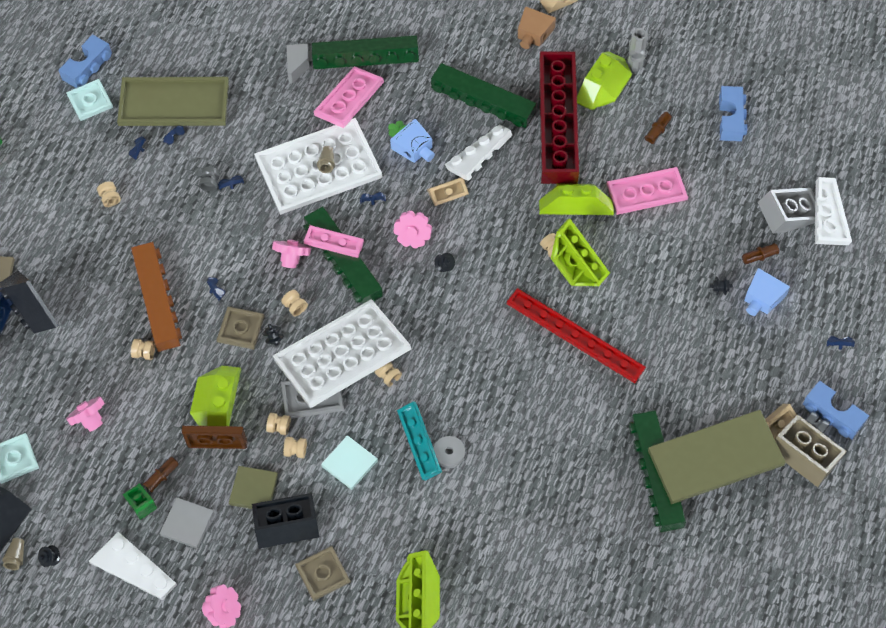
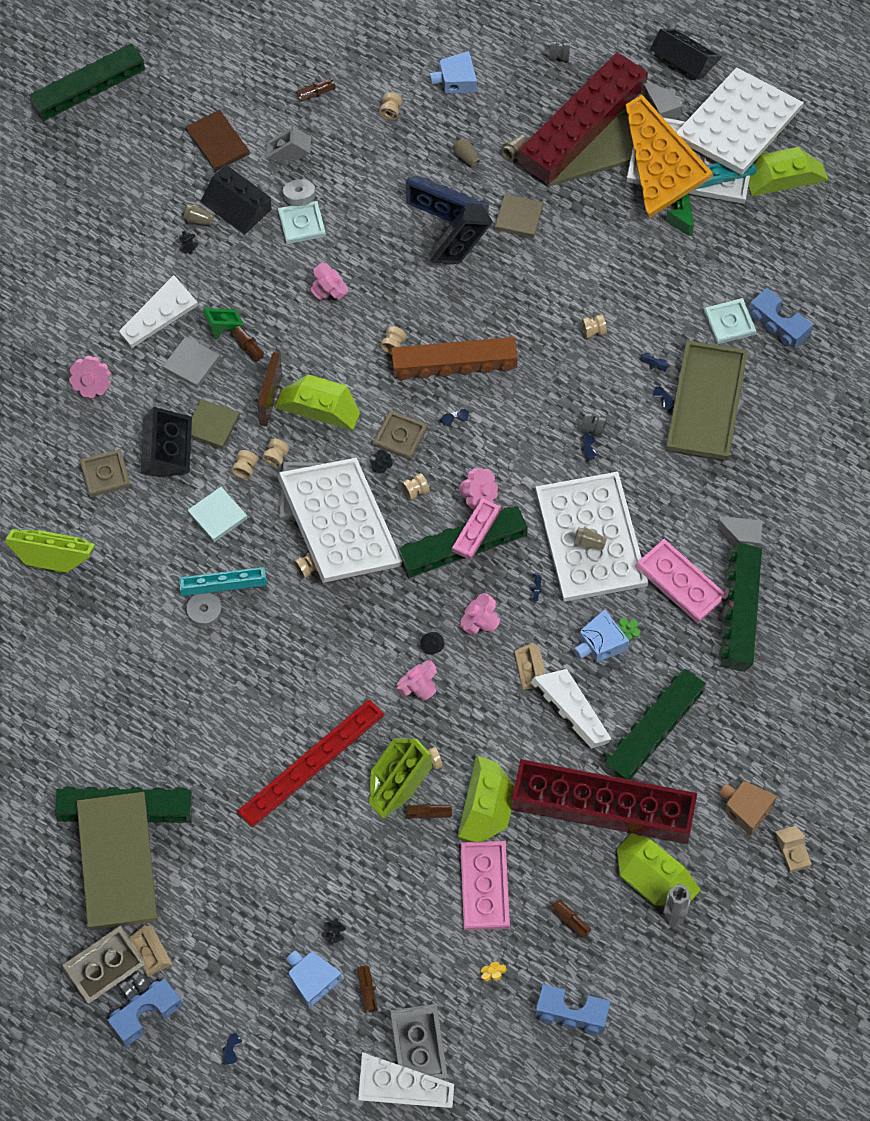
camera: 100 degrees right, 0 degrees up
(483, 263) = (419, 681): none -> bright pink plant
(596, 238) = (429, 811): none -> reddish brown axle
(718, 171) = (494, 971): none -> yellow plant

